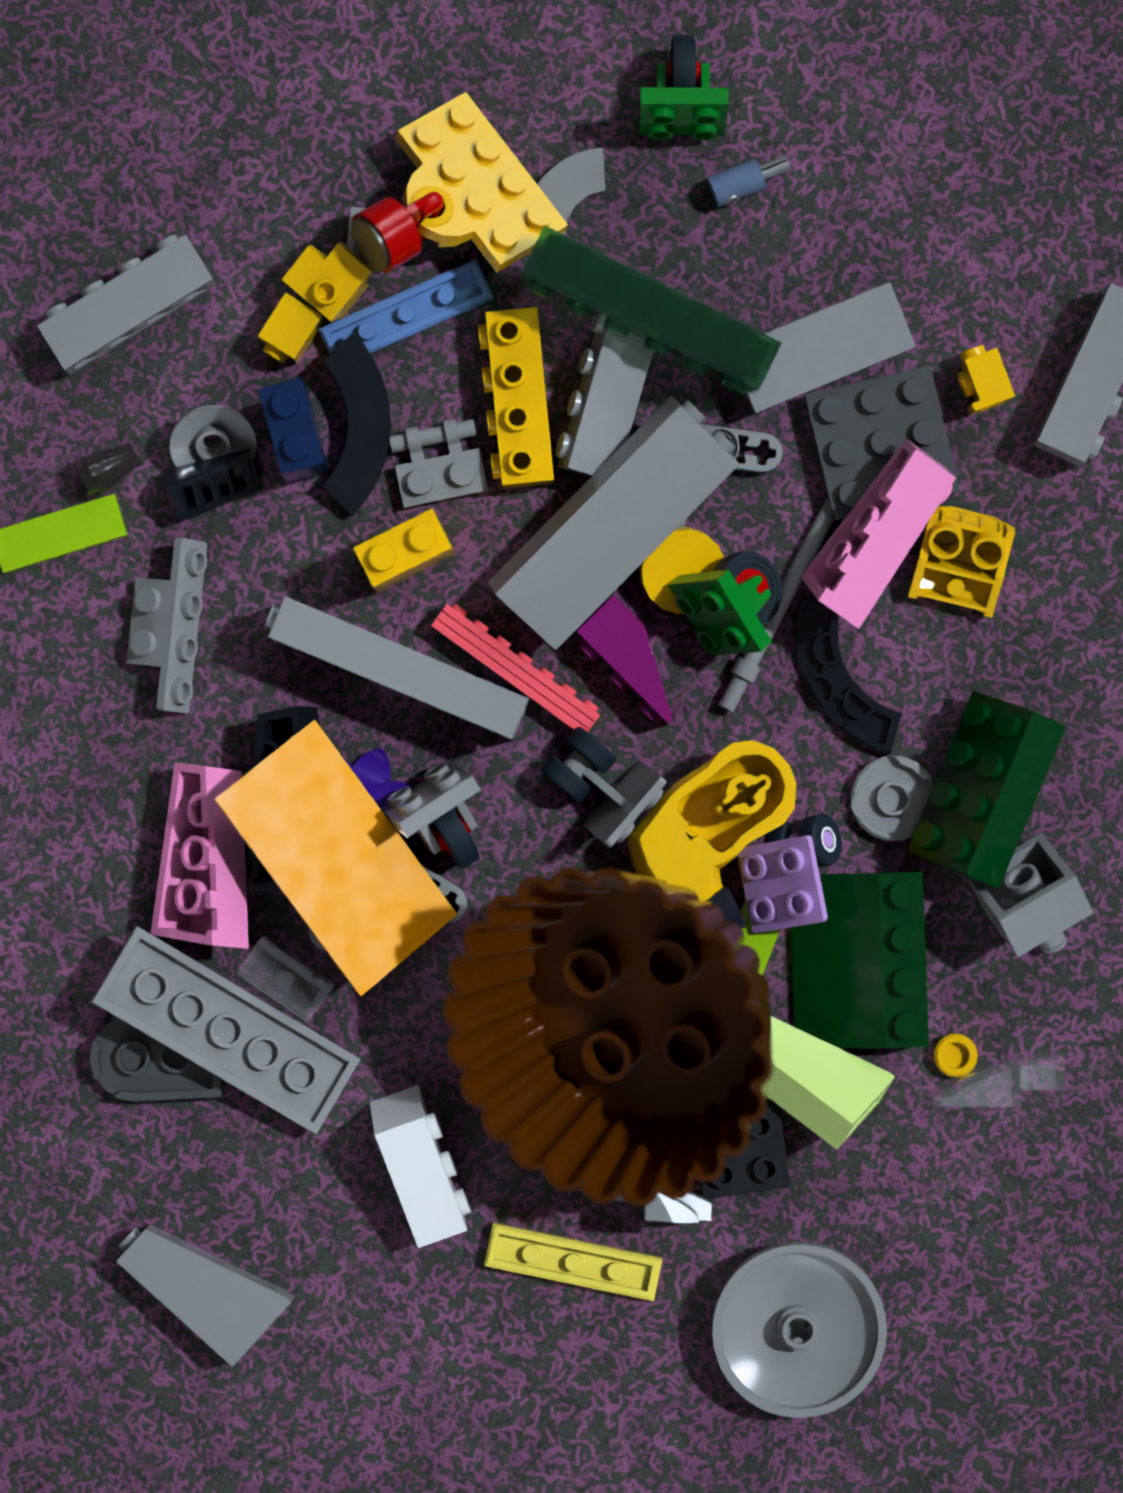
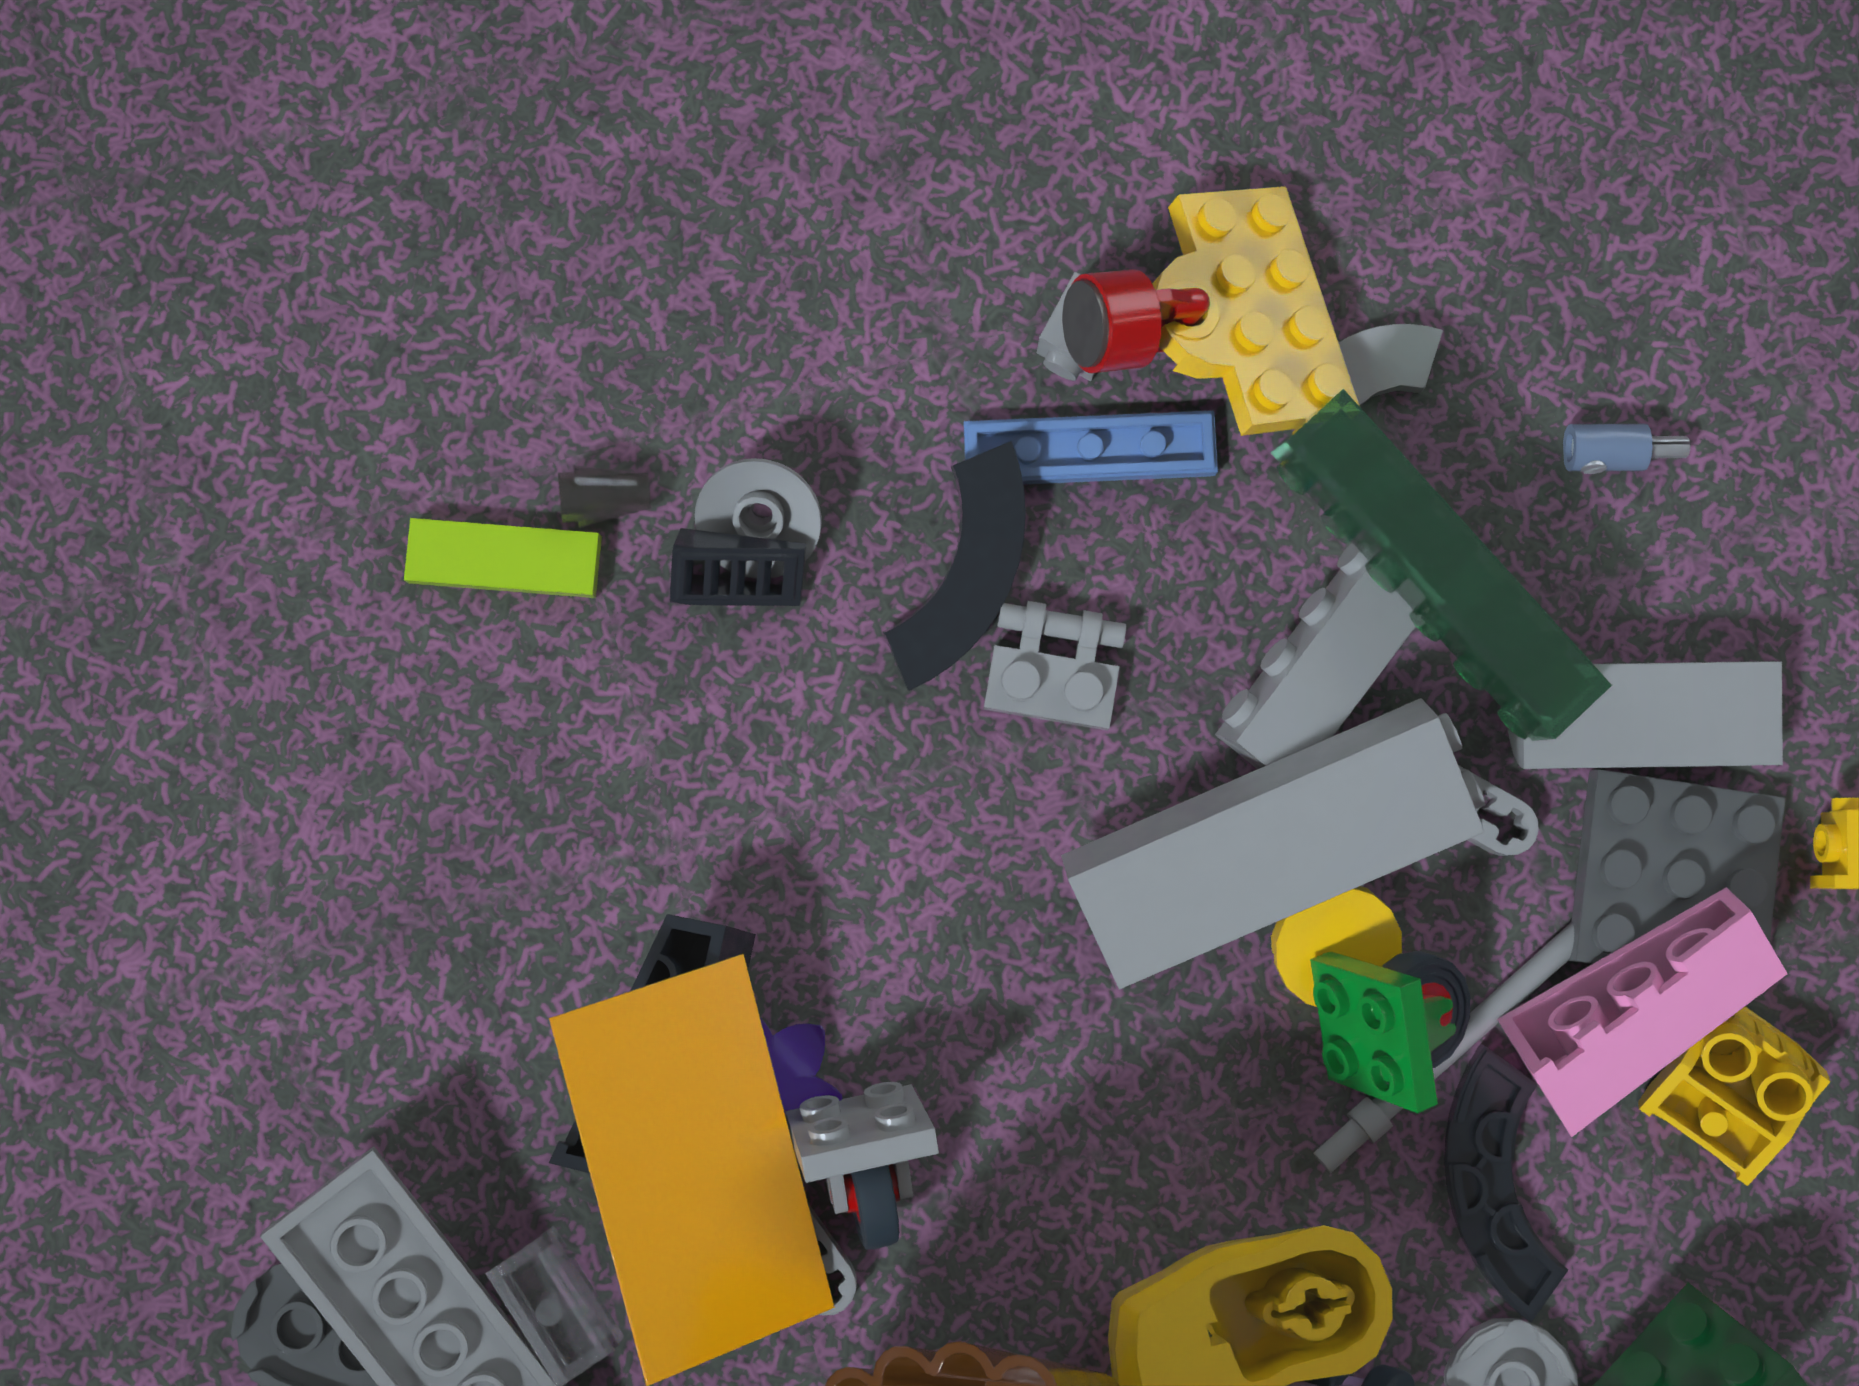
camera: 20 degrees right, 5 degrees down
(125, 304) = (717, 284): light grey brick -> none
(168, 622) = (597, 740): light grey bracket -> none
(201, 864) = (502, 1097): bright pink wedge -> none
(290, 329) = (925, 406): yellow brick -> none
(294, 430) = (876, 539): dark blue brick -> none
(329, 281) = (1005, 360): yellow brick -> none
(396, 667) = (889, 928): light grey brick -> none
(404, 551) = (965, 766): yellow brick -> none
(515, 668) = (1053, 993): coral piece -> none
(519, 398) = (1201, 619): yellow brick -> none
(615, 816) = (1132, 1245): light grey plate -> none
(625, 647) = (1217, 1025): magenta slope -> none
(683, 97) = (1585, 304): green plate -> none

